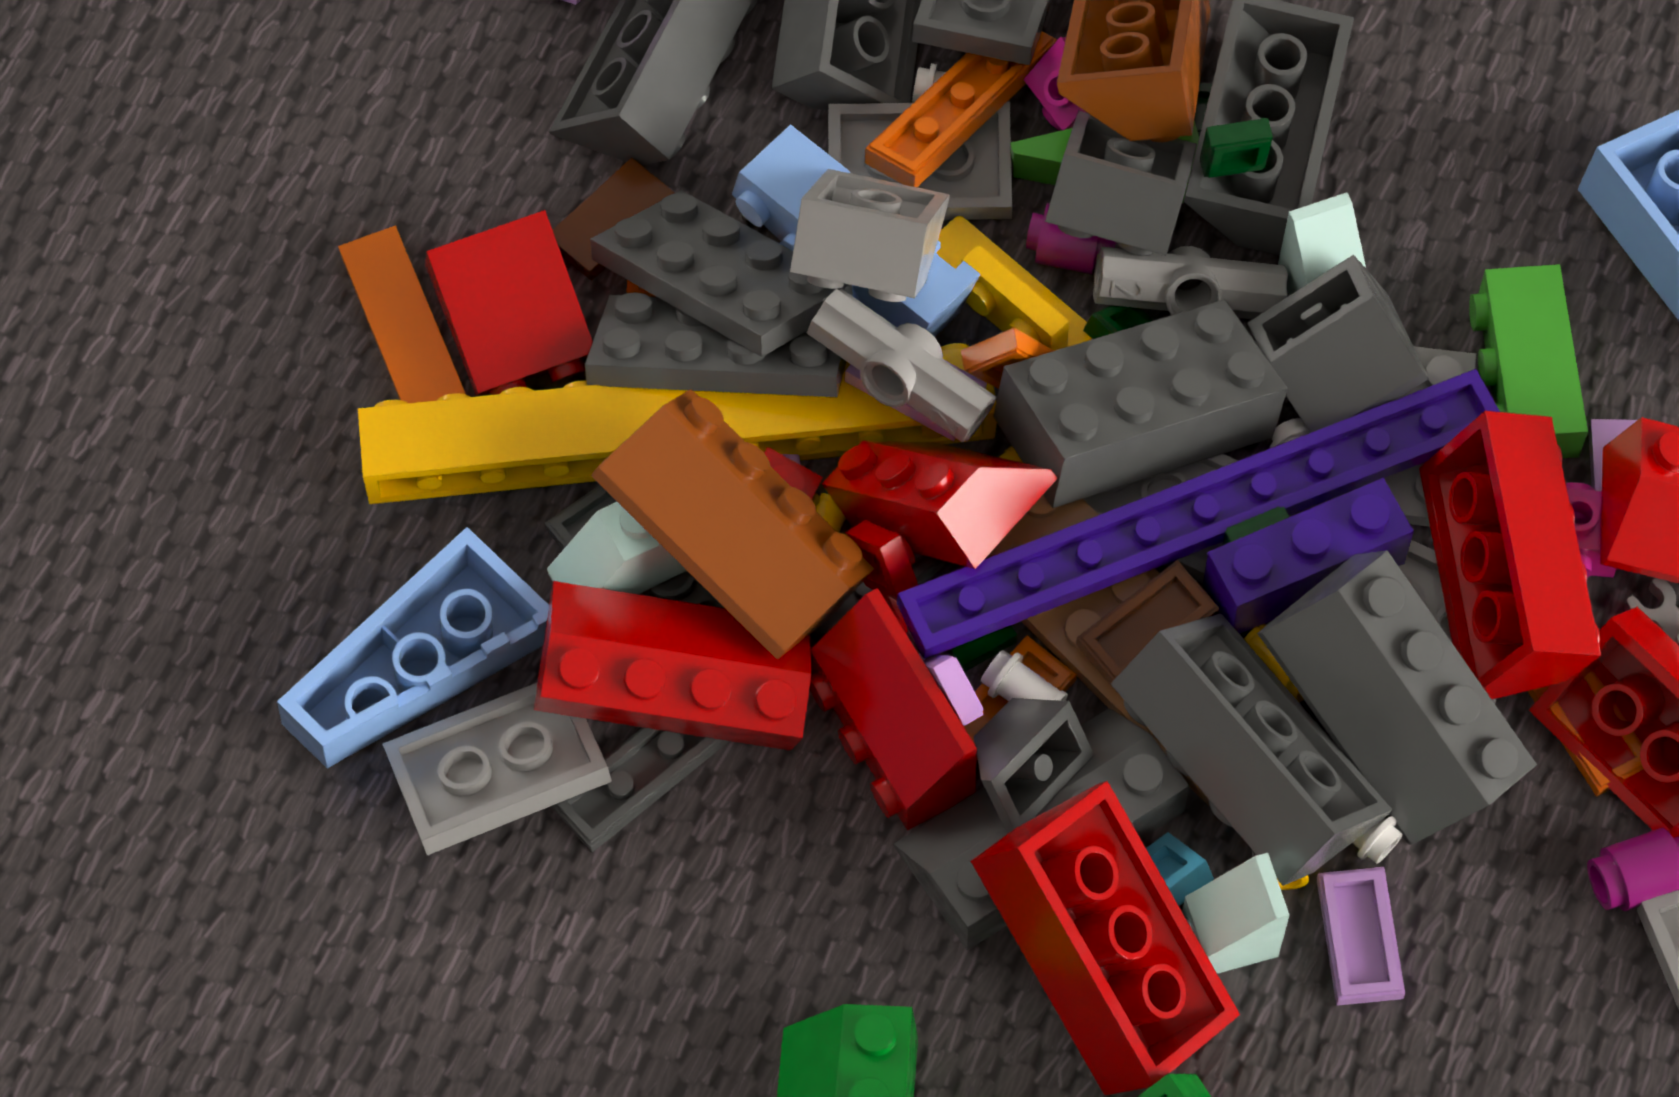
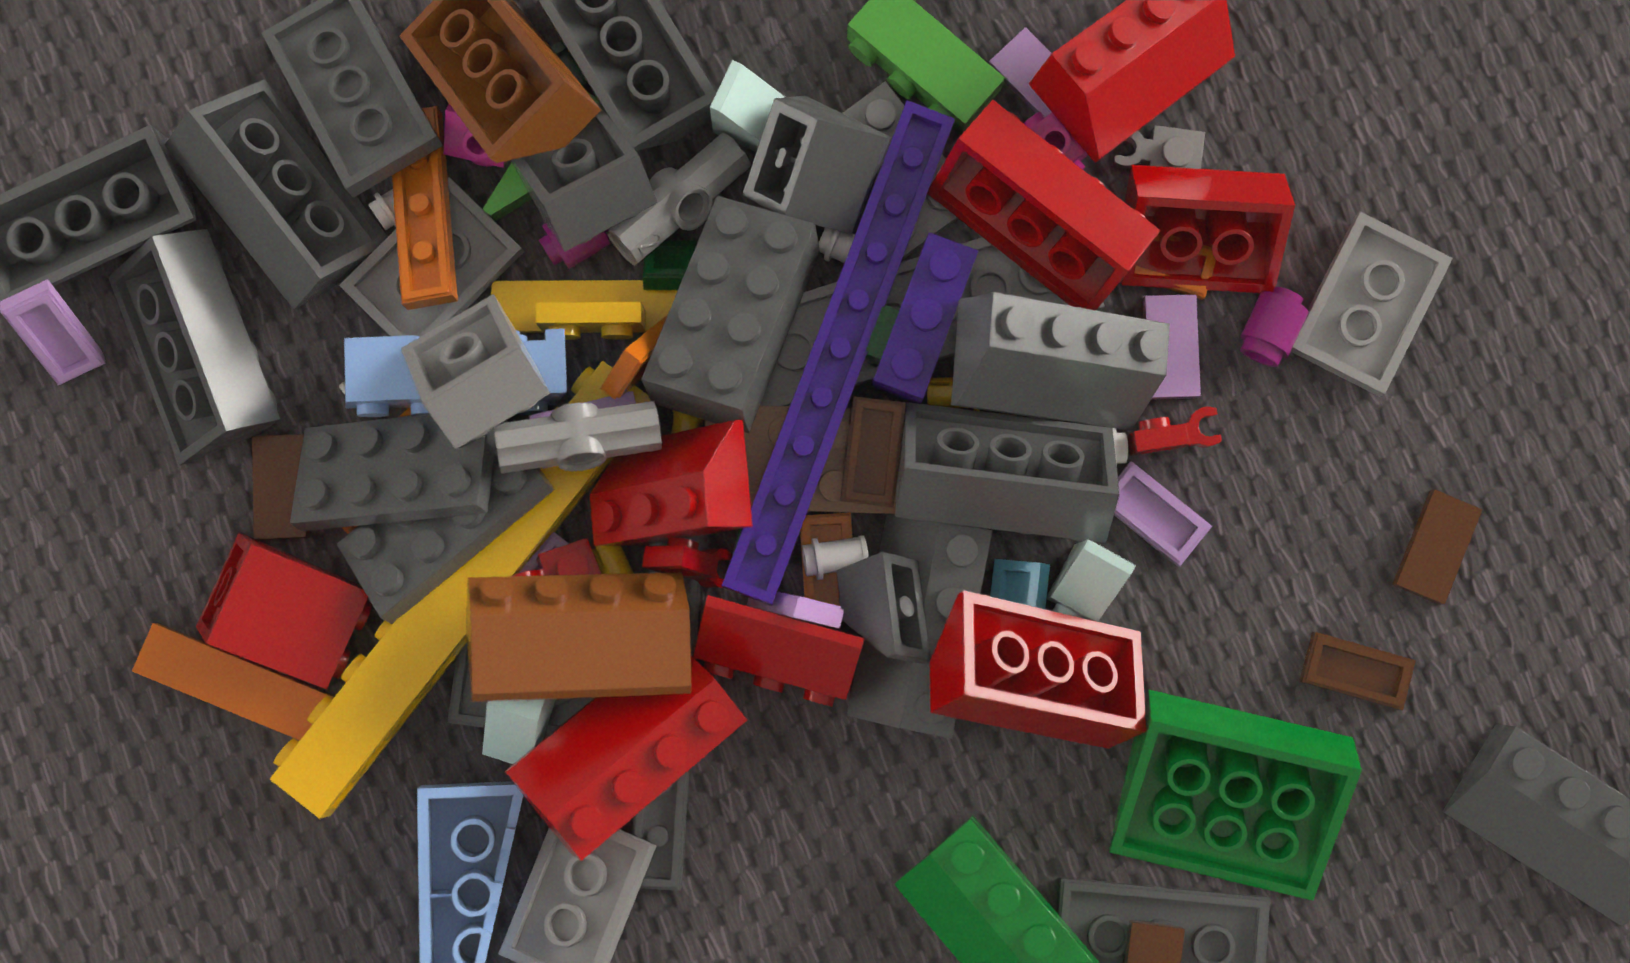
camera: 50 degrees left, 20 degrees up
(1236, 148) = (635, 92): dark green tile -> none
(1436, 870) = (1159, 435): none -> red plate
(1526, 810) = (1183, 348): none -> lavender tile

